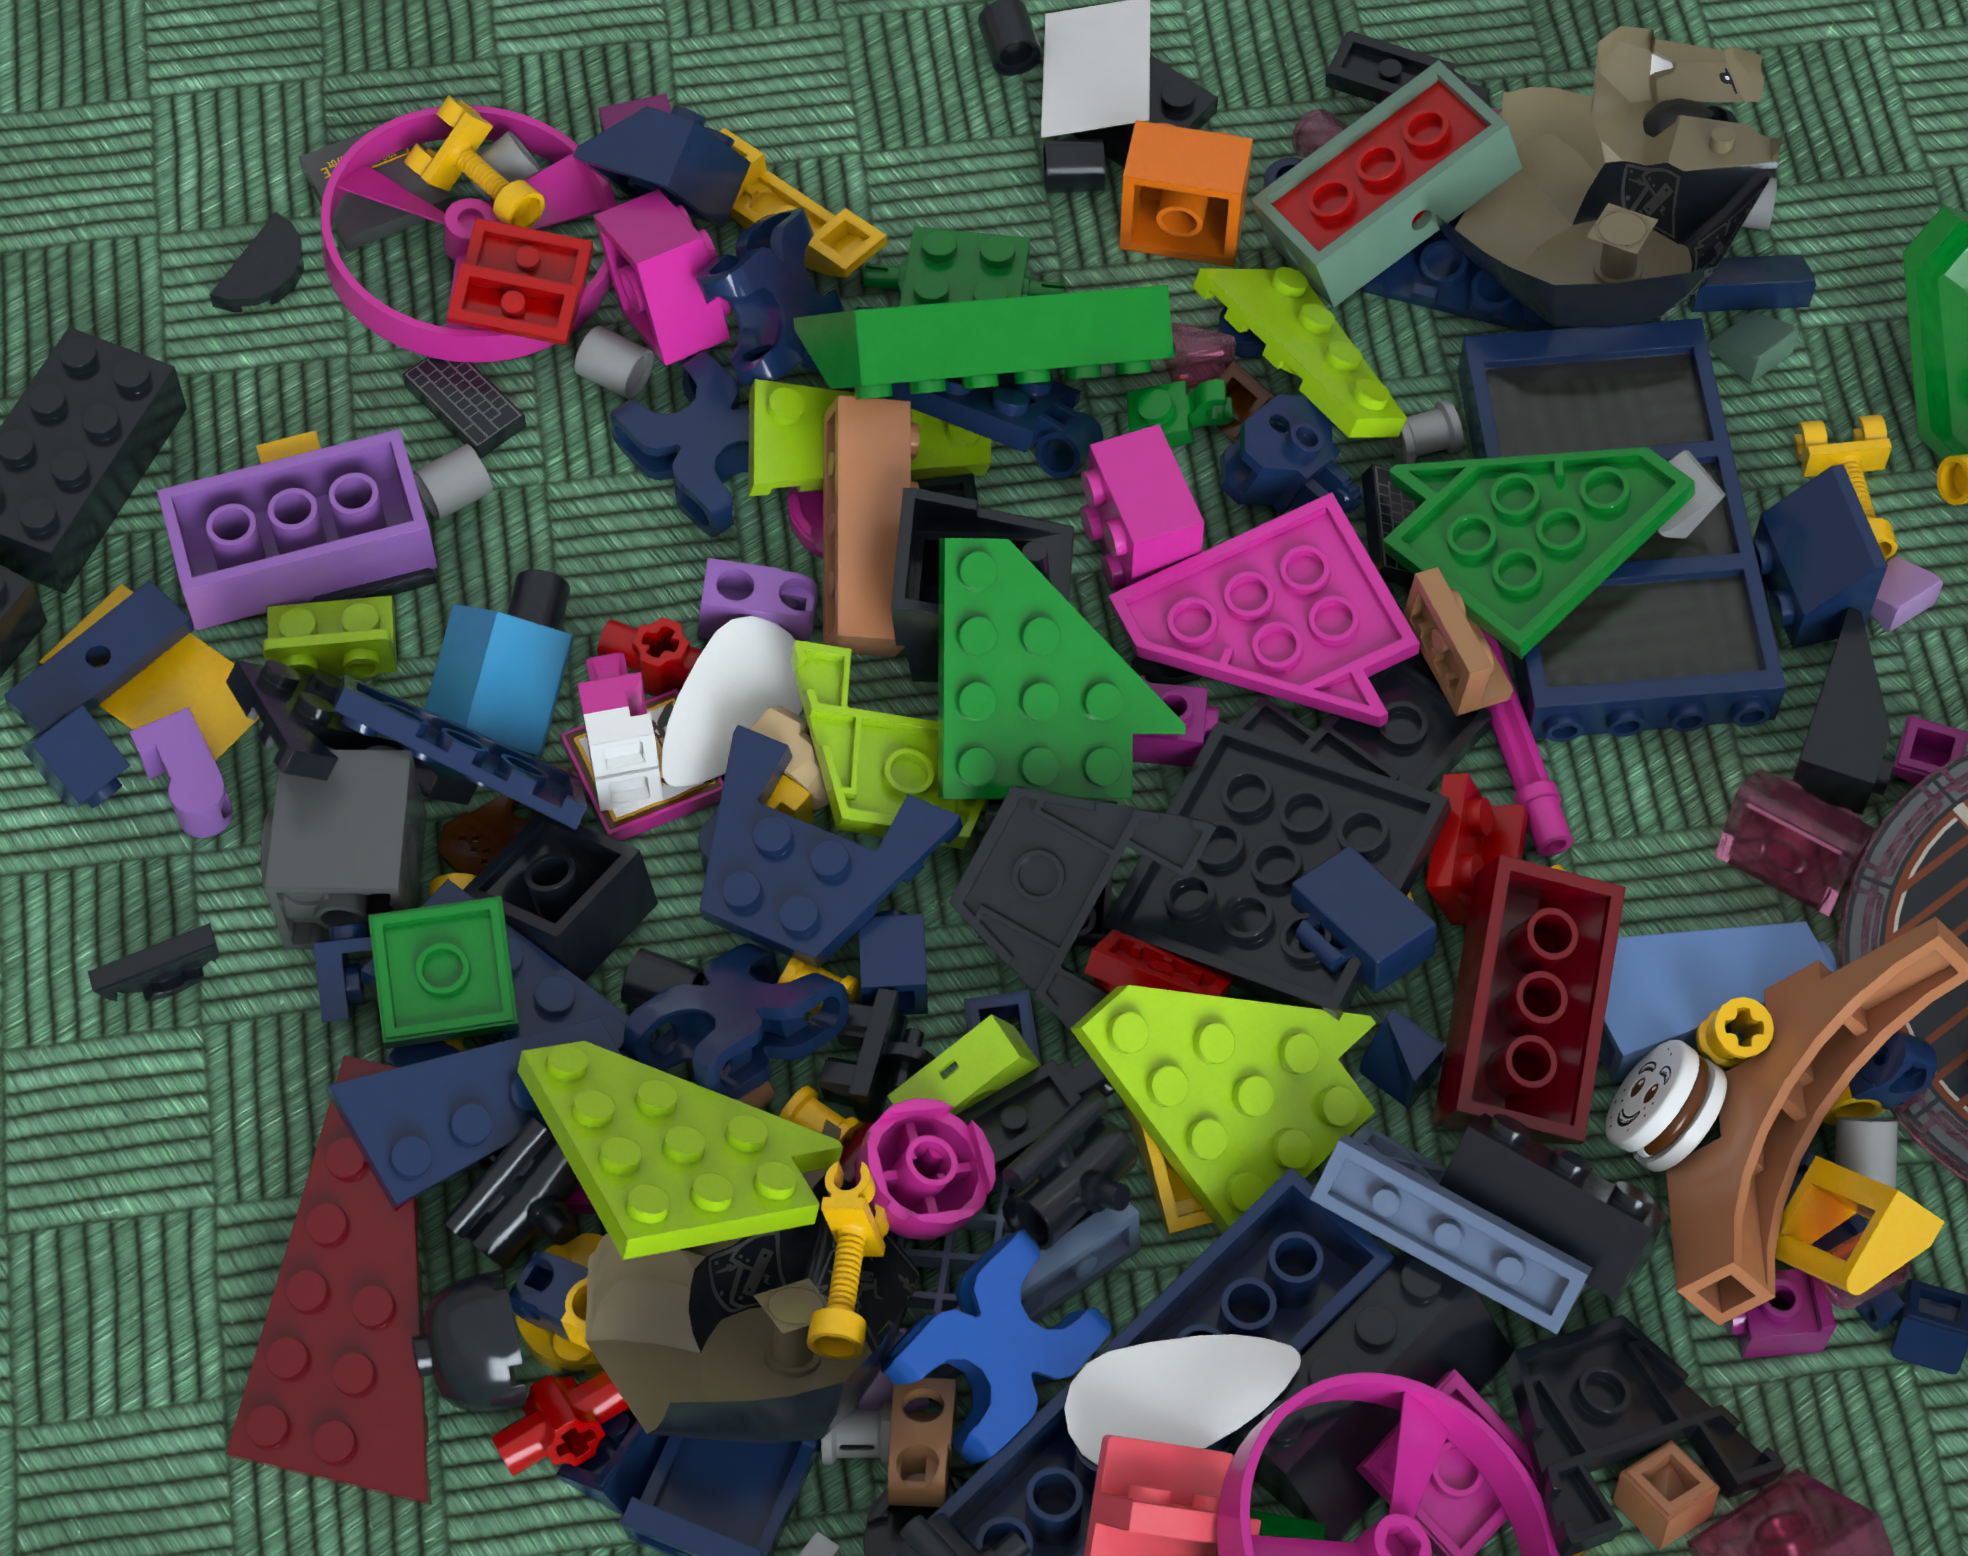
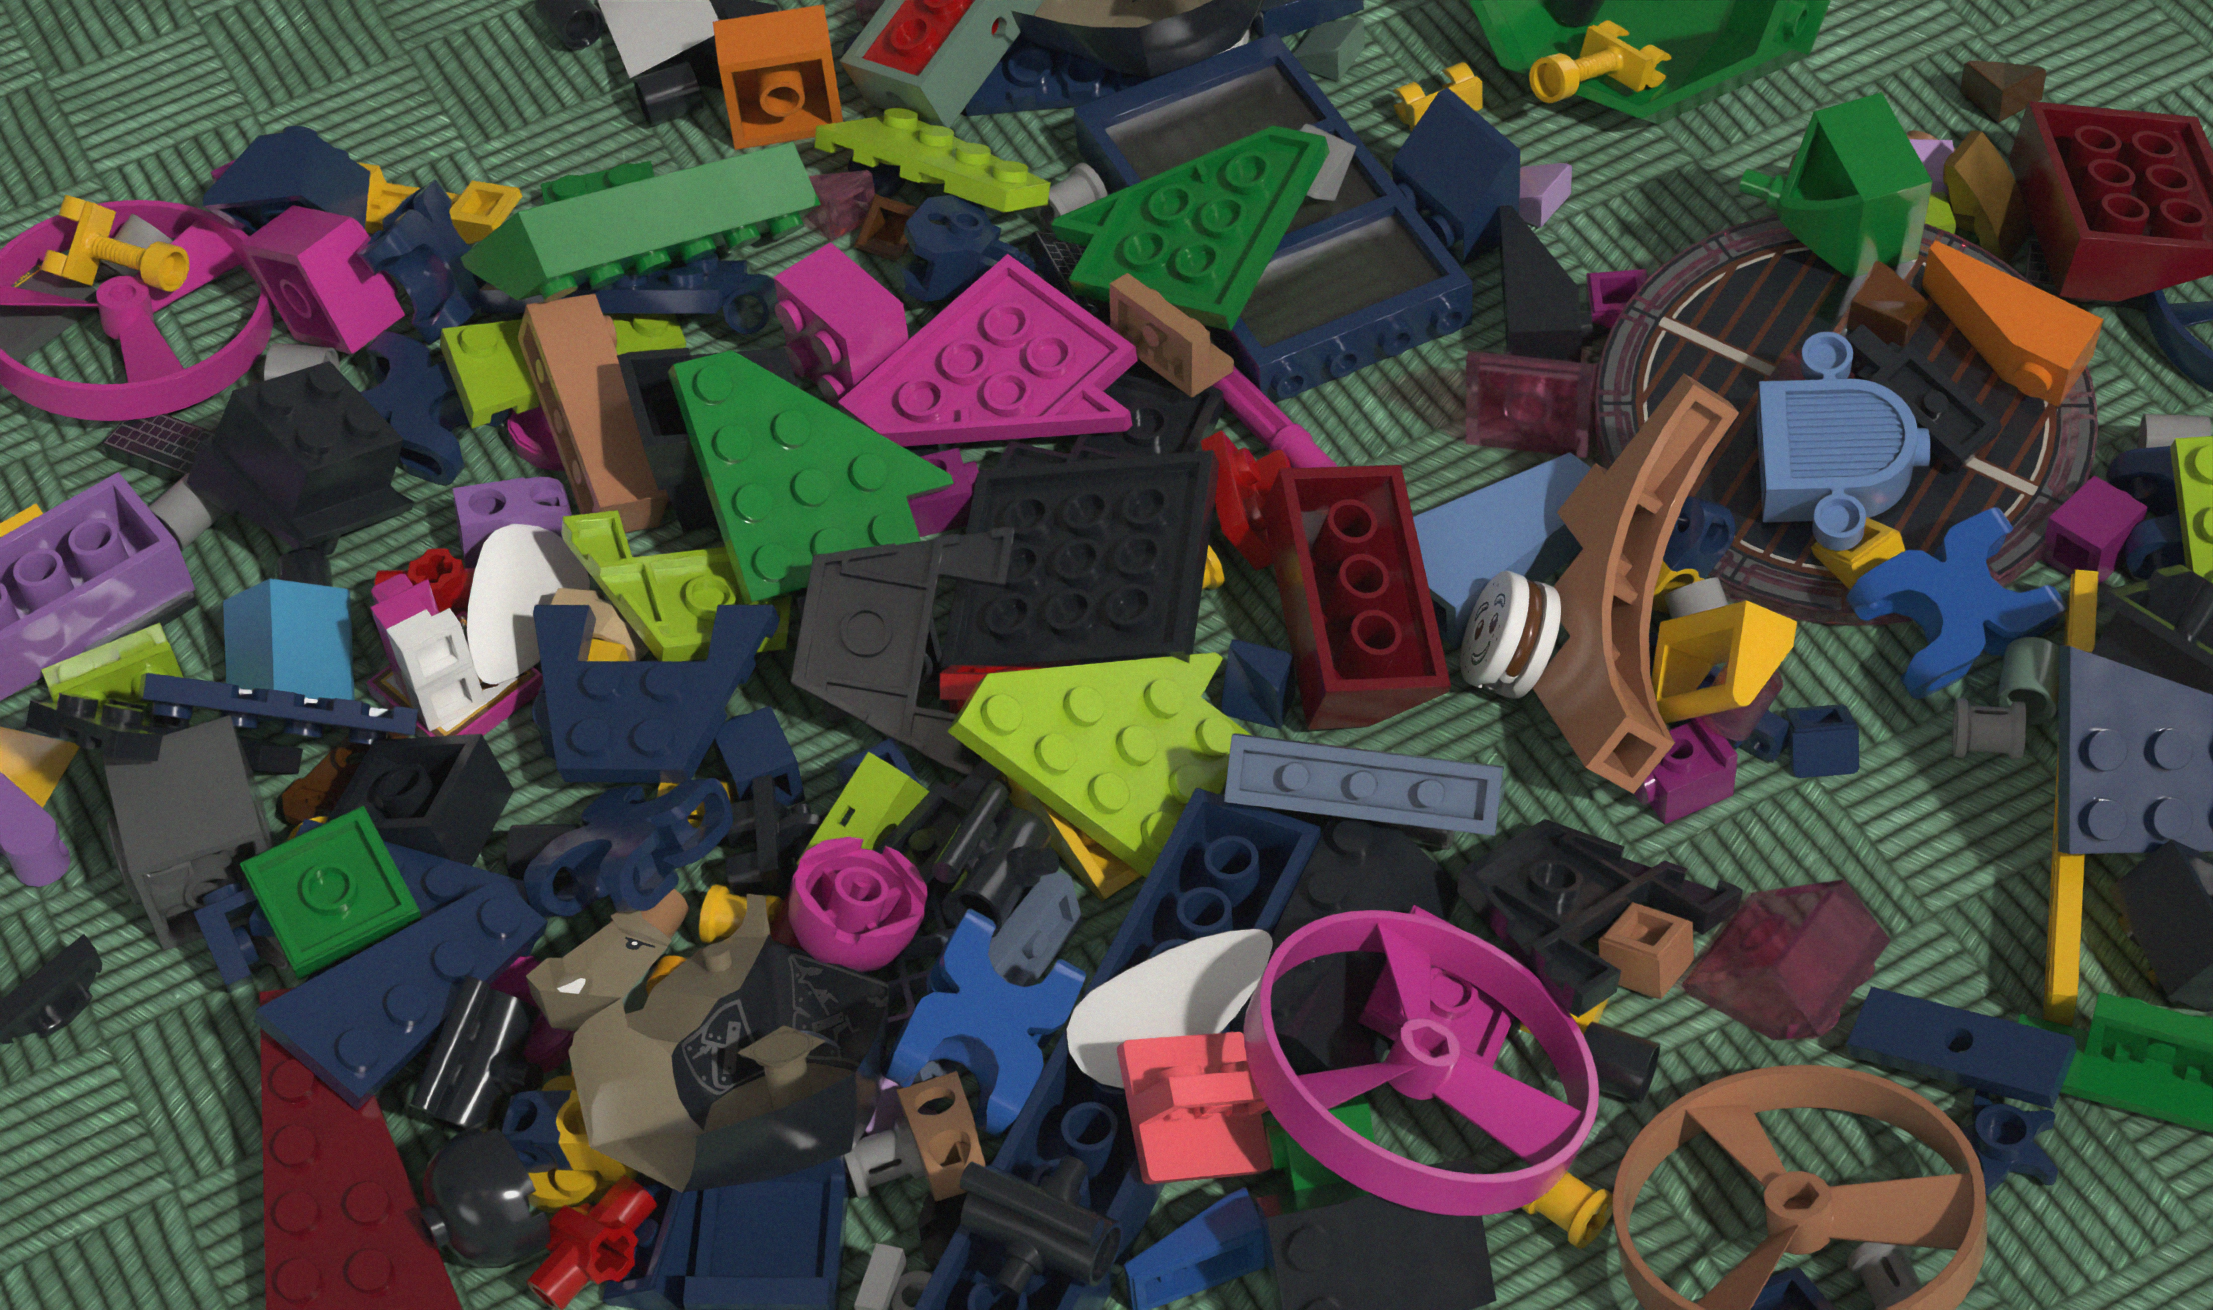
camera: 15 degrees left, 10 degrees down
(521, 281) = (189, 324): red slope -> none
(576, 480) = (302, 459): none -> black piece
(670, 1157) = (612, 958): lime wing -> none
(838, 1330) = (830, 1044): yellow bar -> none
(1179, 409) = (863, 237): green plate -> none
(1365, 919) = (1176, 570): dark blue piece -> none
(1556, 1200) = (1449, 726): black slope -> none
(1746, 1017) = (1547, 547): yellow bush -> none

